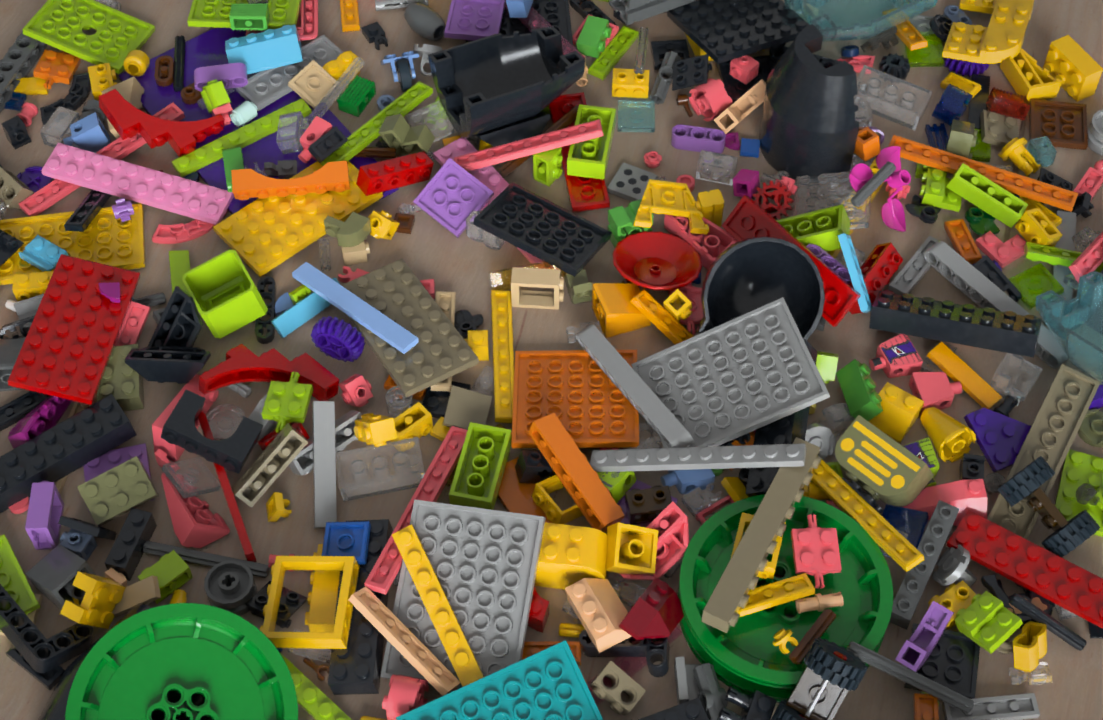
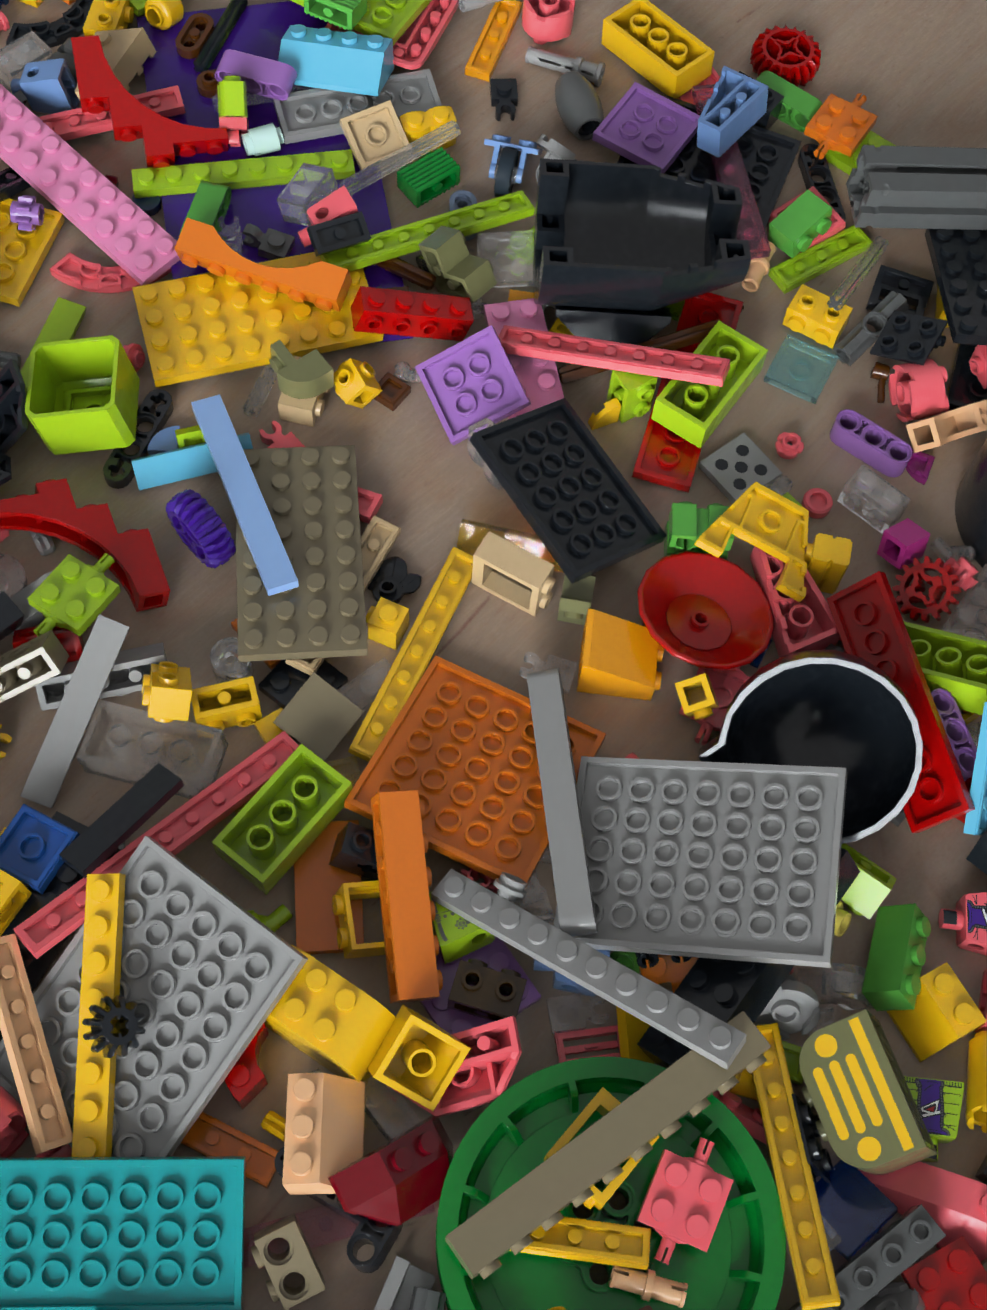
camera: 20 degrees right, 10 degrees up
(356, 390) = (185, 616): coral brick -> none
(390, 505) = (121, 820): none -> black tile
(454, 603) = (126, 1025): none -> black gear
(540, 183) = (607, 416): none -> yellow tile
(632, 442) = (510, 886): none -> light grey plate
(660, 317) = (666, 706): light orange tile -> none
(750, 147) = (940, 488): blue tile -> none

